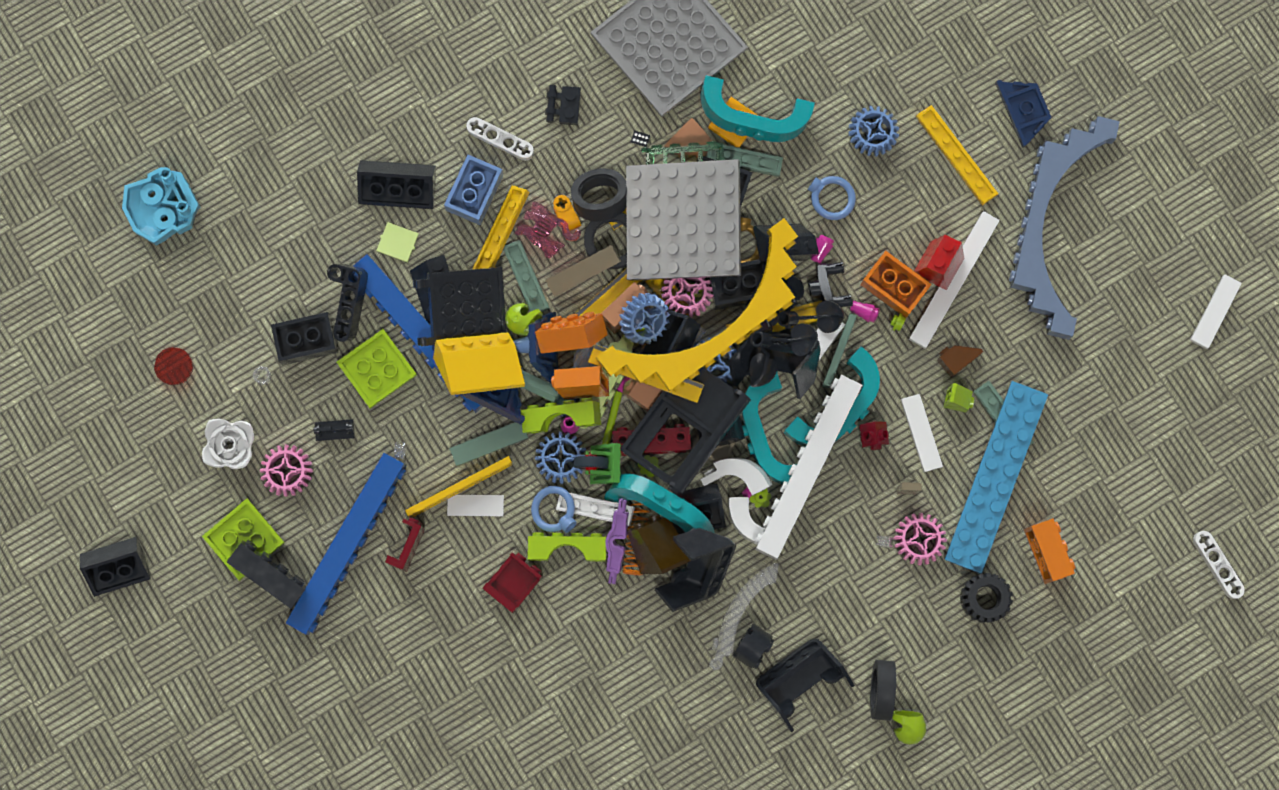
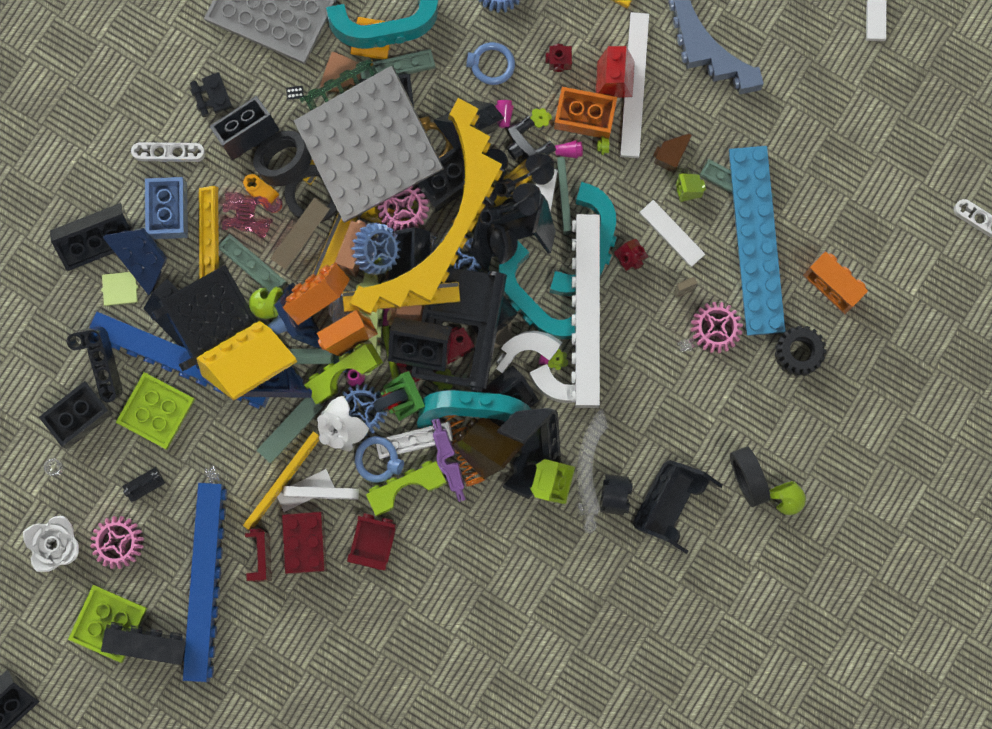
camera: 20 degrees left, 0 degrees up
(429, 221) = (139, 255): none -> dark blue wing
(452, 553) = (304, 543): none -> dark red brick
(489, 515) = (321, 493): none -> white beam
(532, 463) = (338, 428): none -> white brick
(579, 150) = (244, 128): none -> black brick
(641, 424) = (419, 343): none -> black slope
(702, 606) = (552, 481): none -> lime slope
(856, 266) = (545, 117): none -> lime plant
(896, 222) = (559, 57): none -> dark red brick

